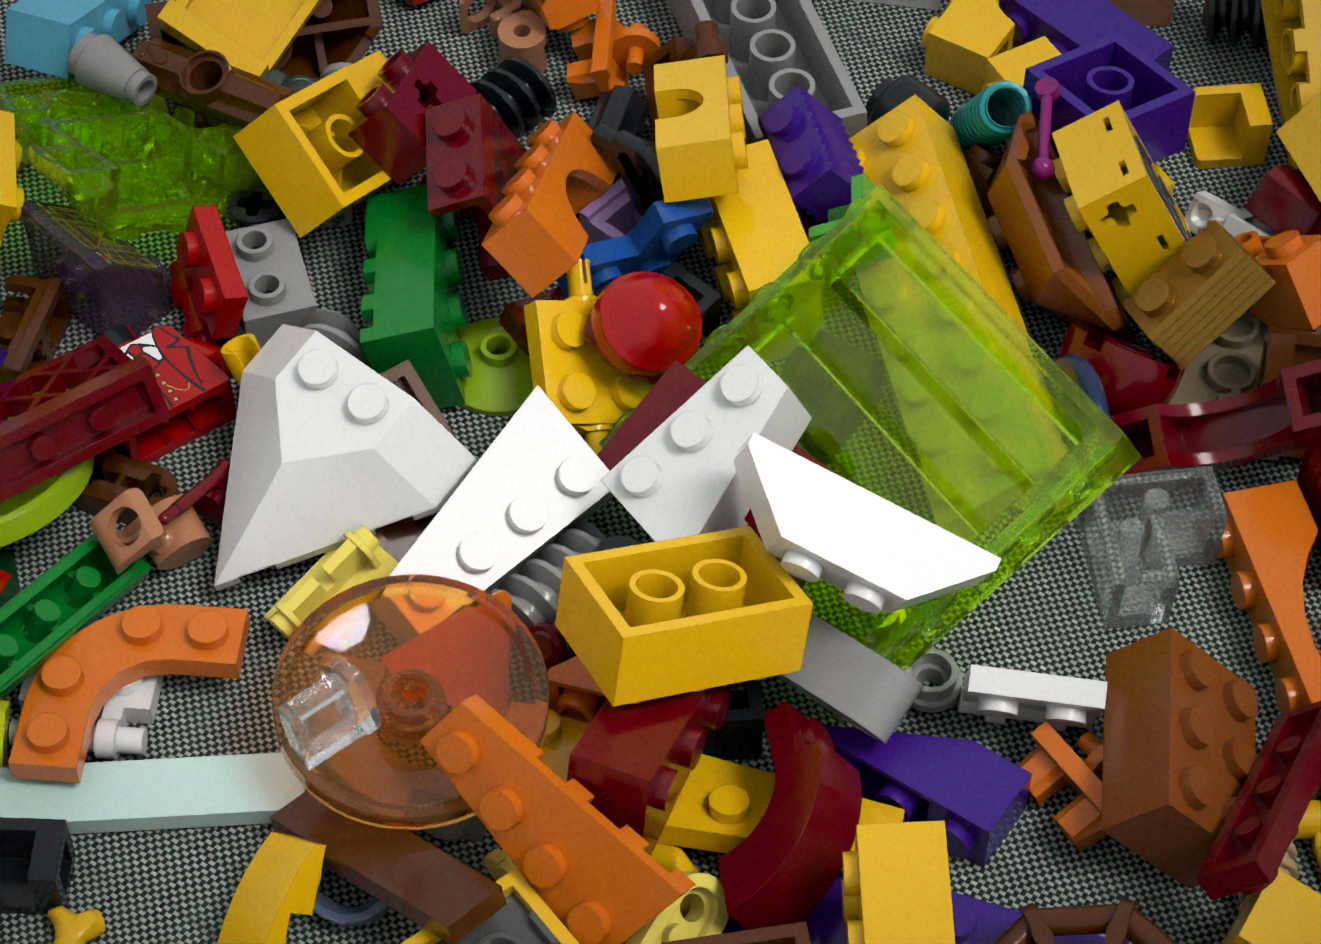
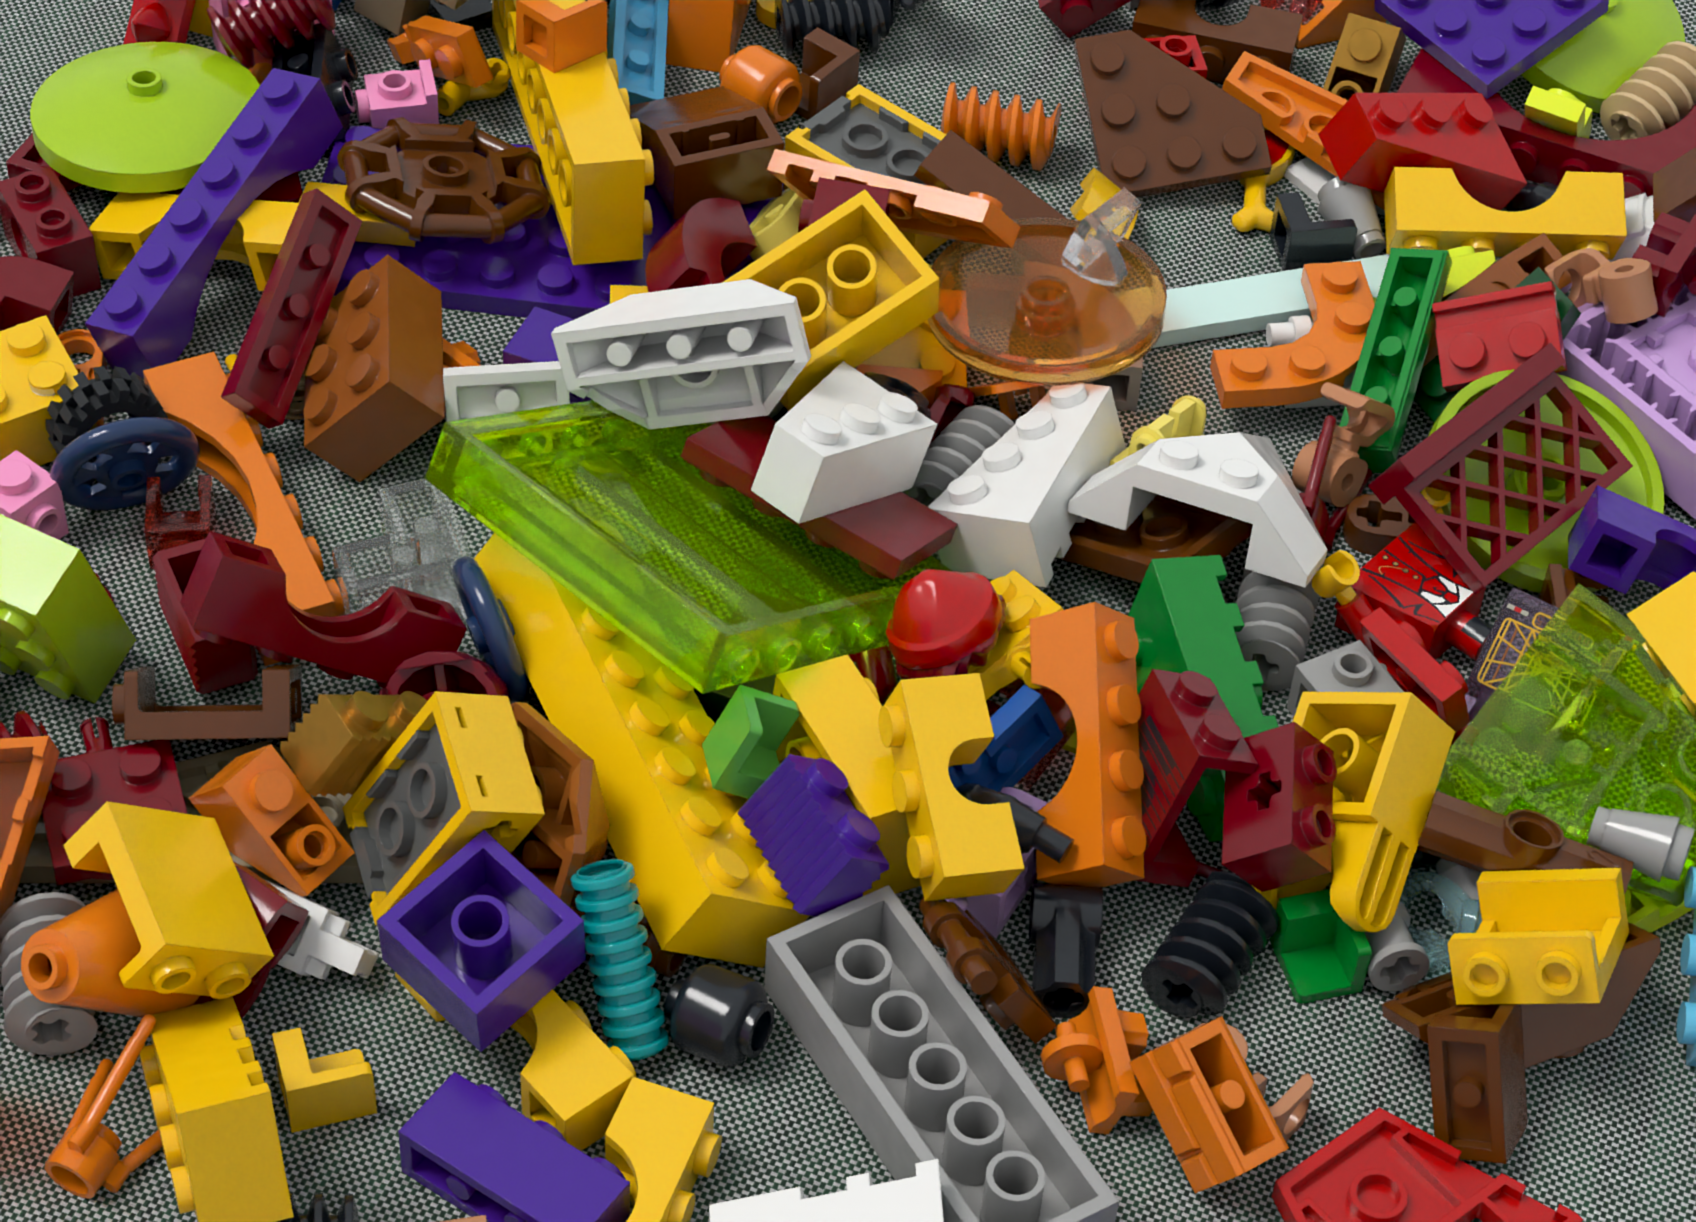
camera: 165 degrees right, 5 degrees down
(1047, 91) = (554, 875): magenta hinge -> none

